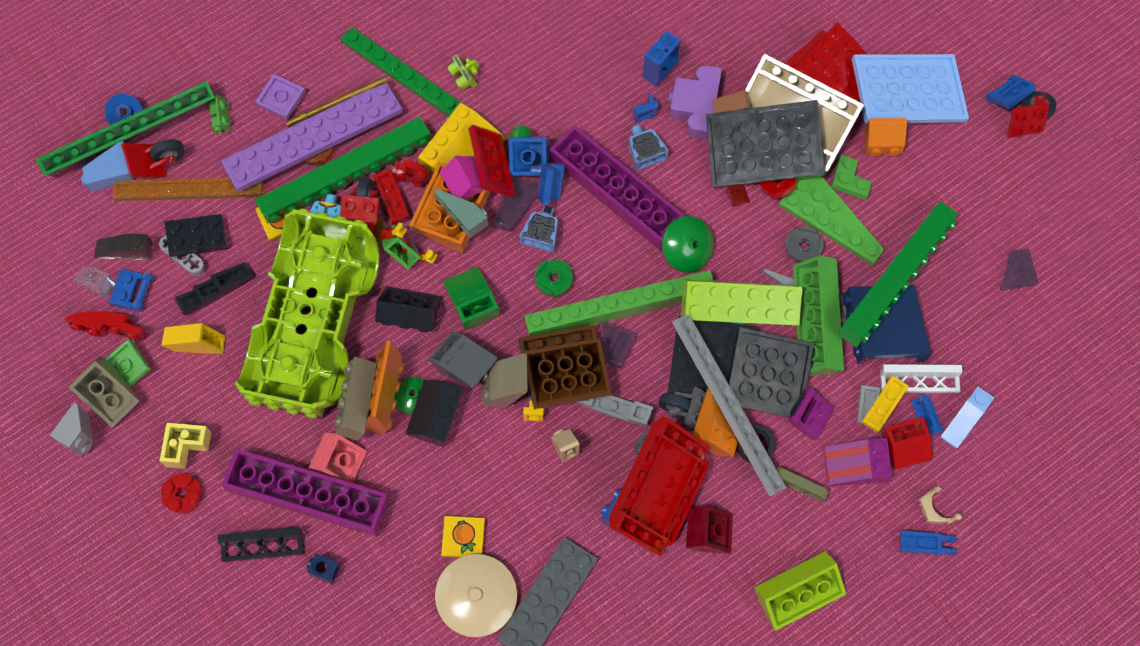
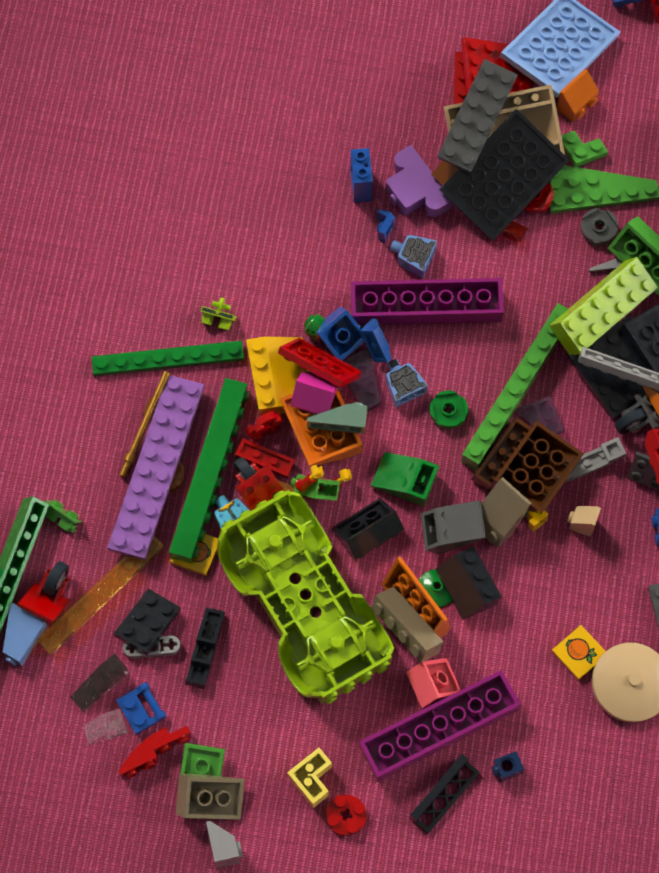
camera: 45 degrees left, 0 degrees up
(193, 339) = (232, 698): yellow slope -> none
(280, 96) = (94, 459): medium lavender plate -> none
(678, 243) = (521, 298): green dish -> none
(782, 81) = (477, 116): none -> dark grey plate

